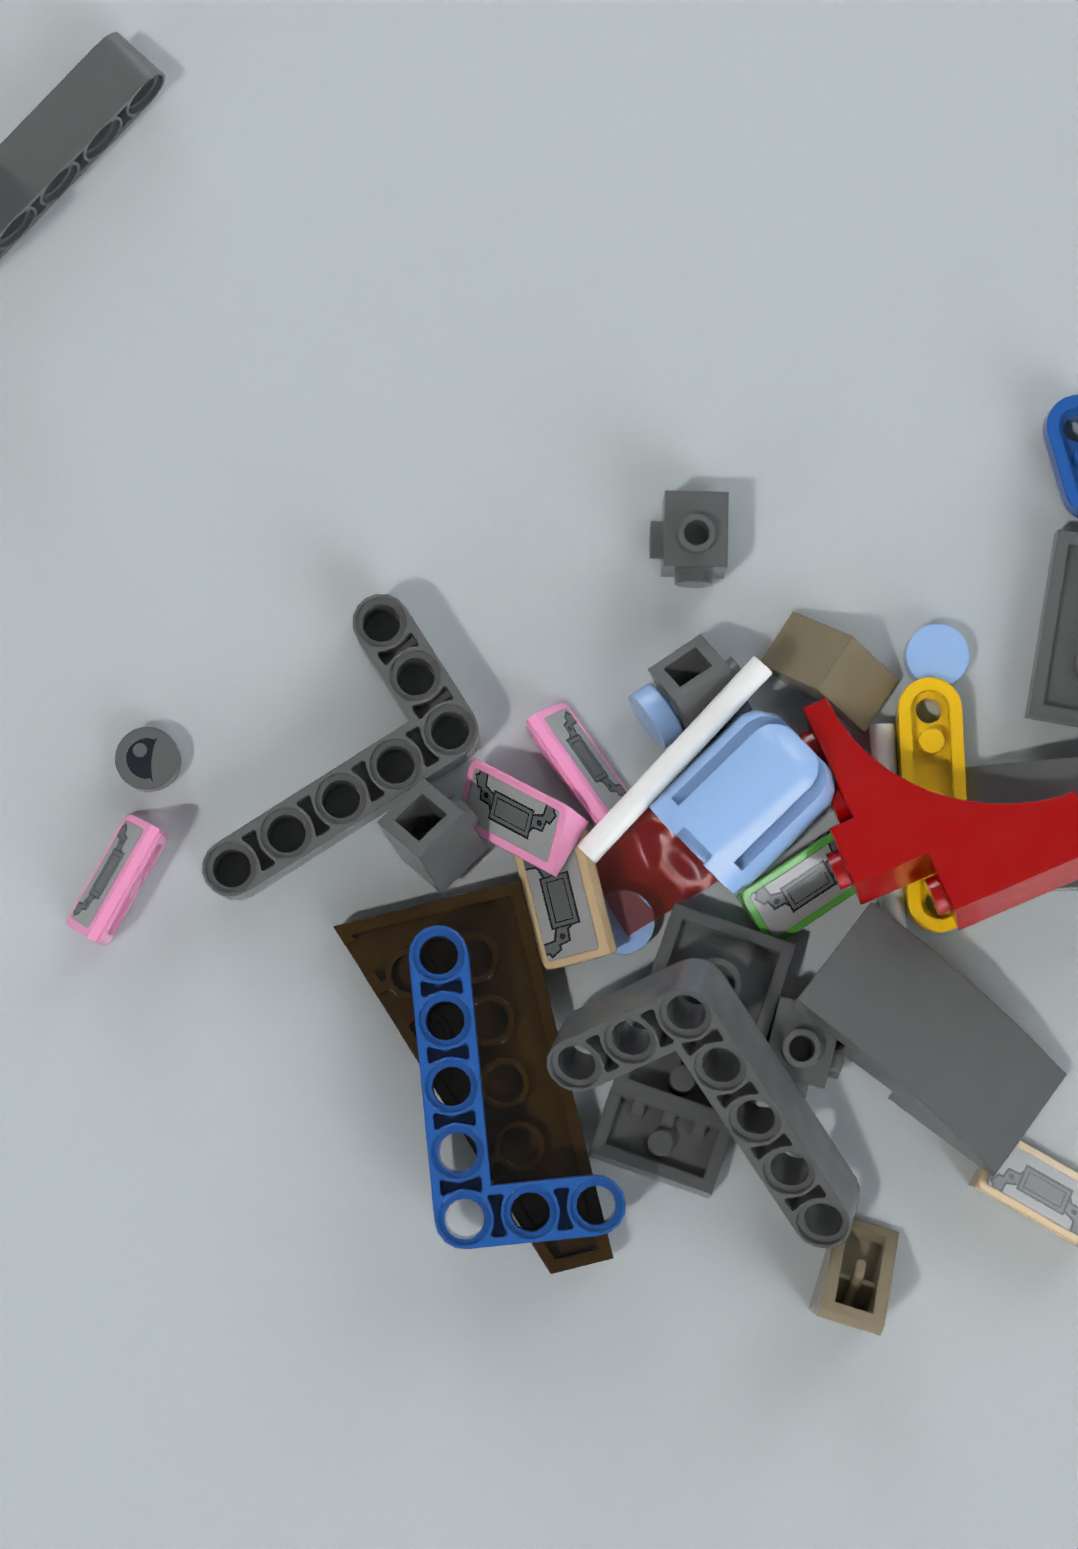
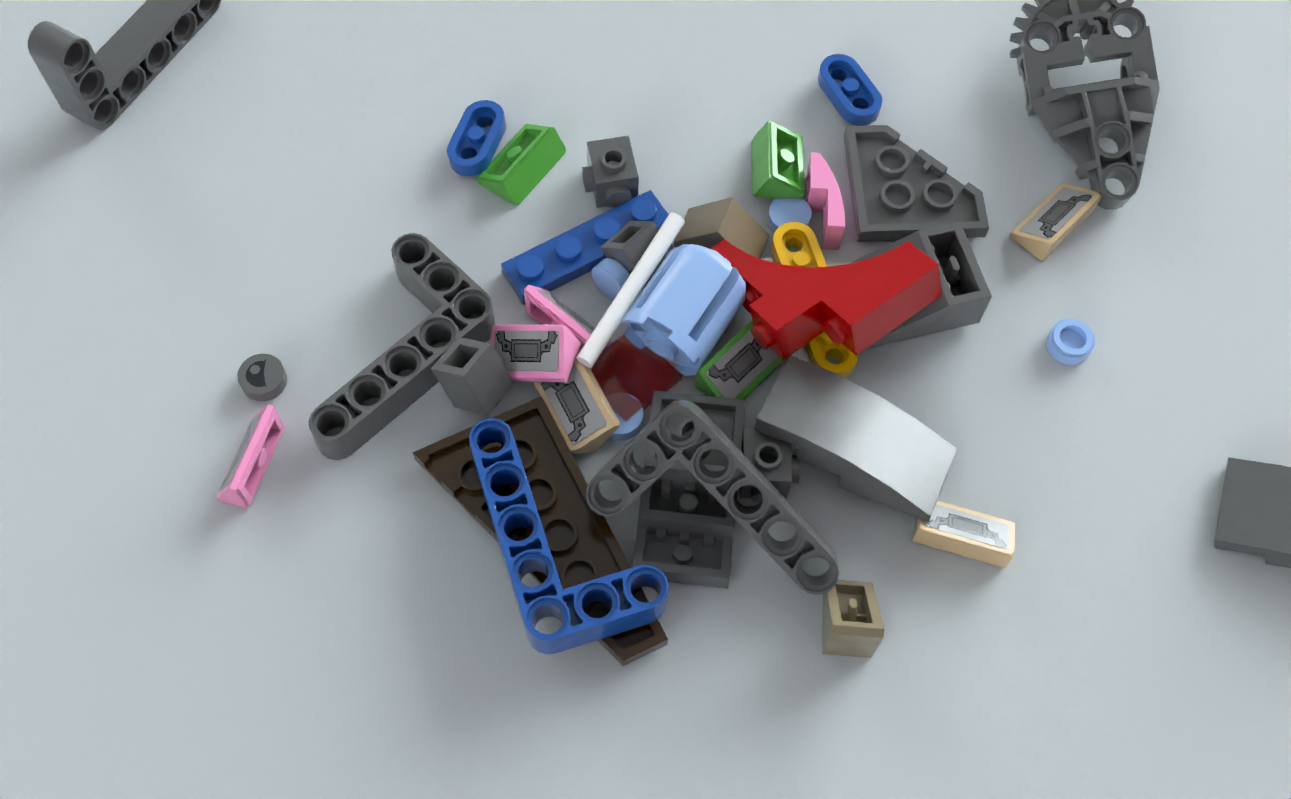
camera: 15 degrees left, 20 degrees down
(506, 432) = (475, 142): none -> blue plate
(567, 480) = (523, 163): none -> bright green slope
(630, 644) = (577, 249): none -> blue plate
(941, 567) = (777, 163): none -> bright green slope
(993, 635) = (825, 198): none -> bright pink slope

